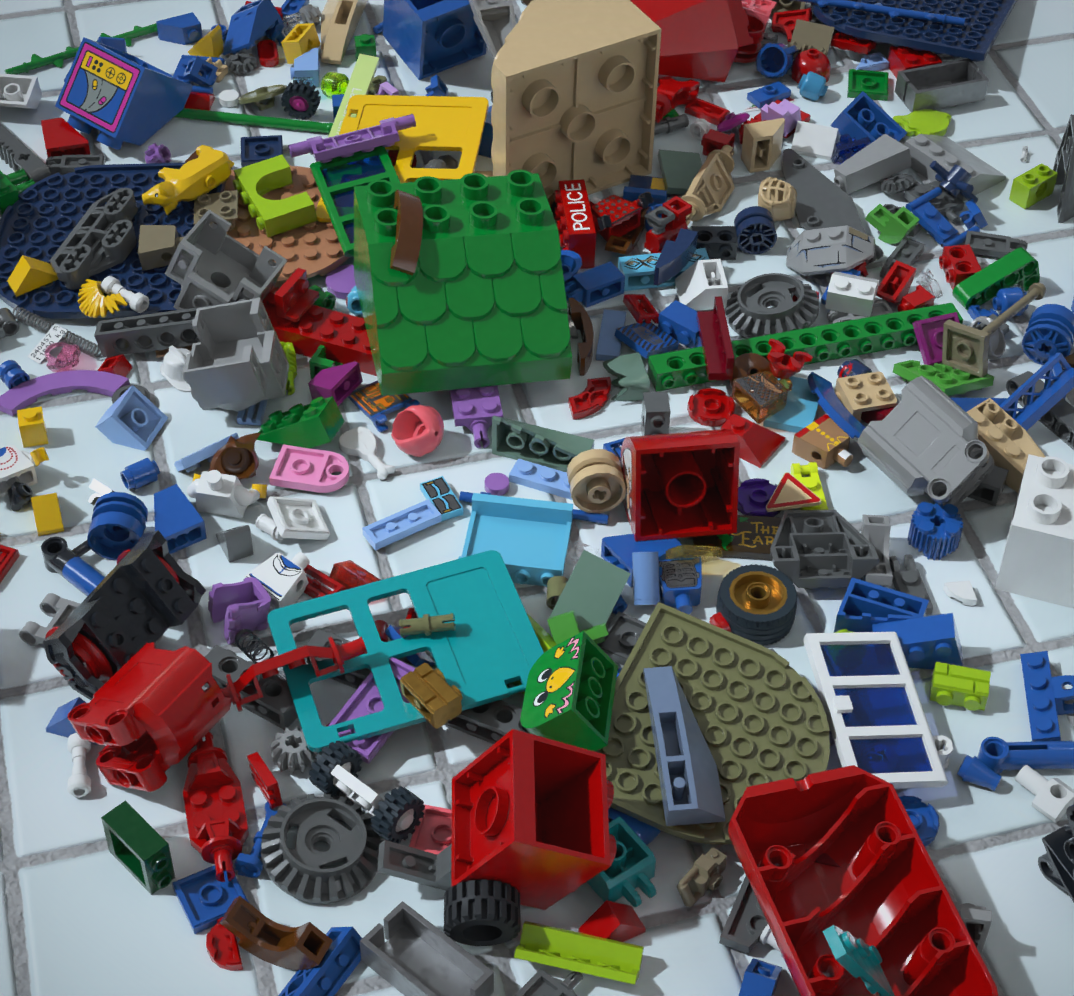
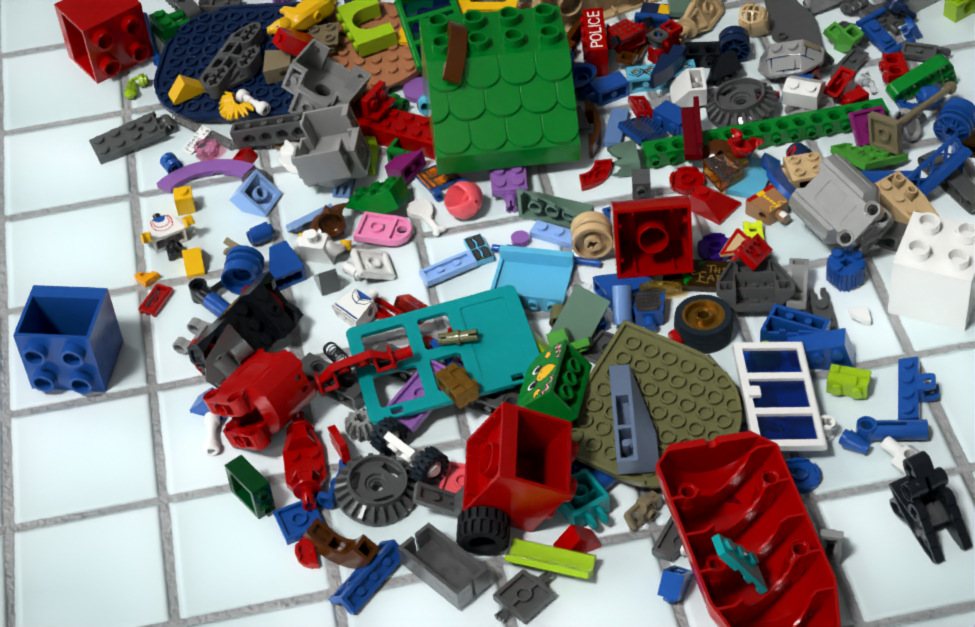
camera: 10 degrees right, 0 degrees up
(100, 653) = (226, 355): none -> dark grey panel
(177, 213) = (291, 40): none -> red slope
(241, 605) = (327, 326): medium lavender piece -> none
(744, 258) = (724, 66): none -> black slope
(813, 504) = (752, 251): none -> red bracket

